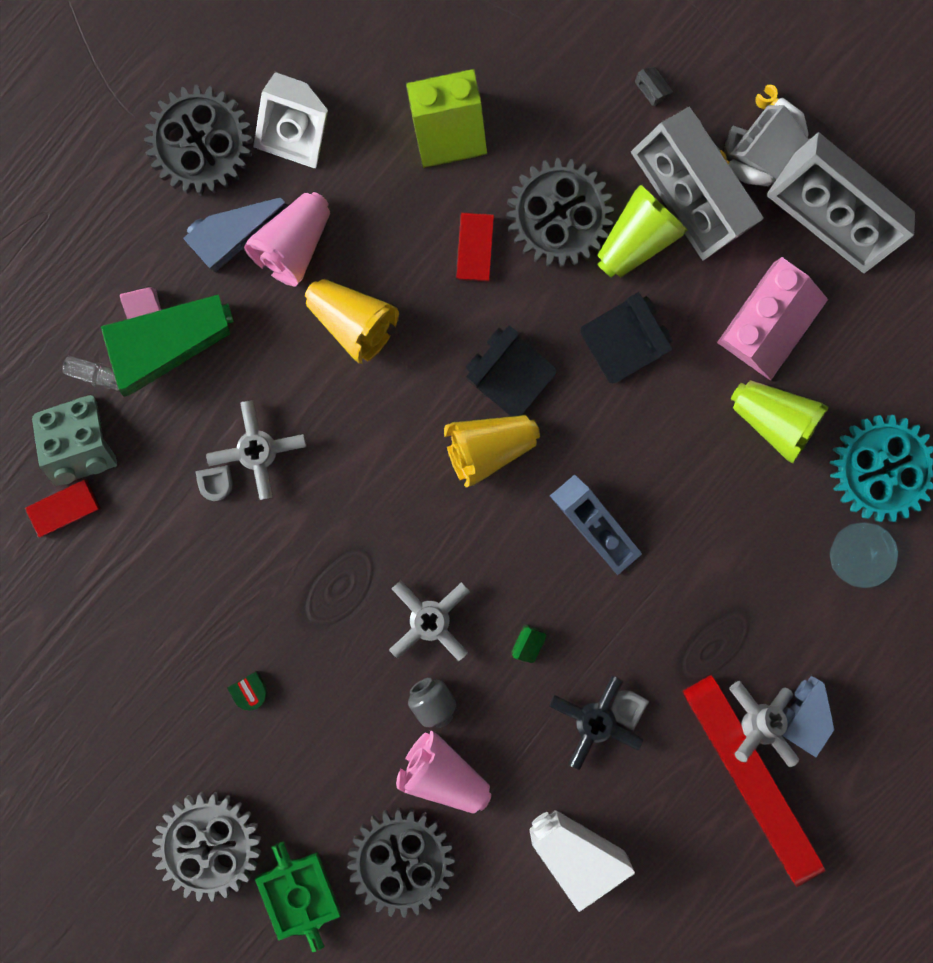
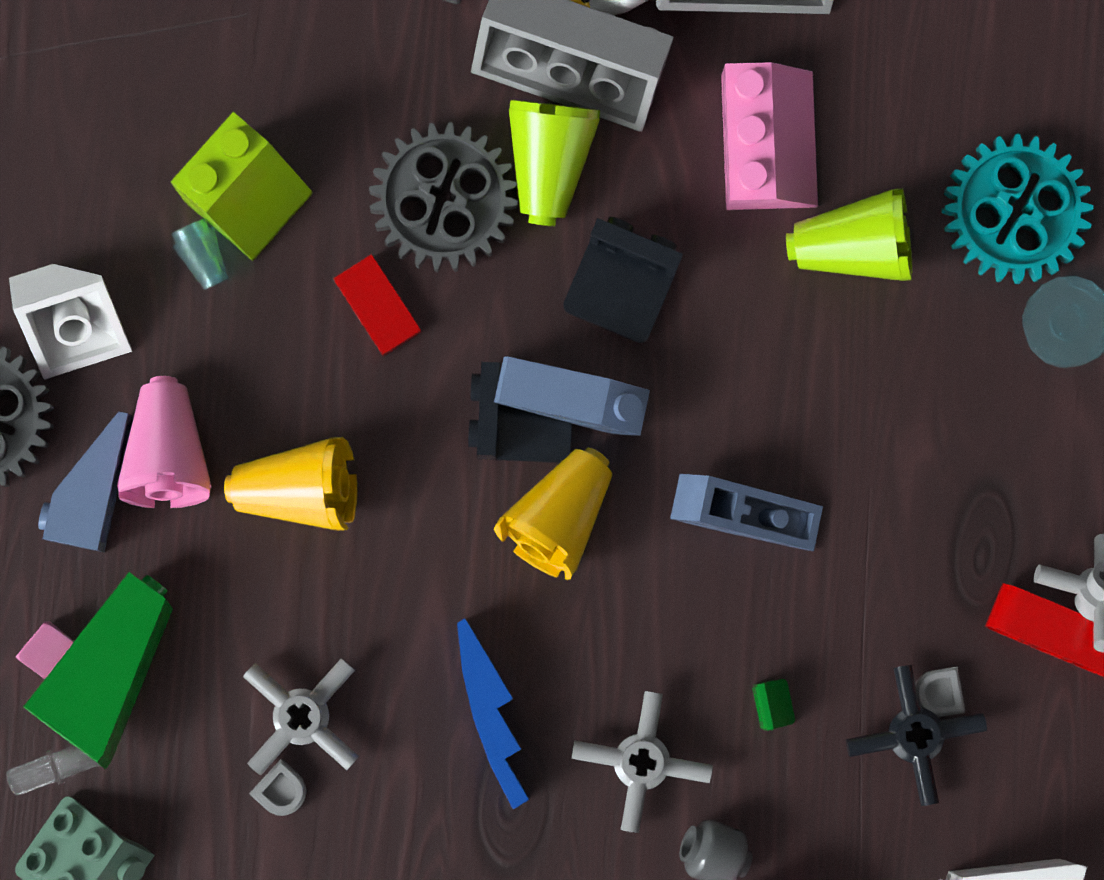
camera: 45 degrees left, 5 degrees down
(369, 517) = (486, 695): none -> blue slope
(396, 140) = (201, 253): none -> clear light blue cone
(546, 384) = (572, 396): none -> sand blue slope

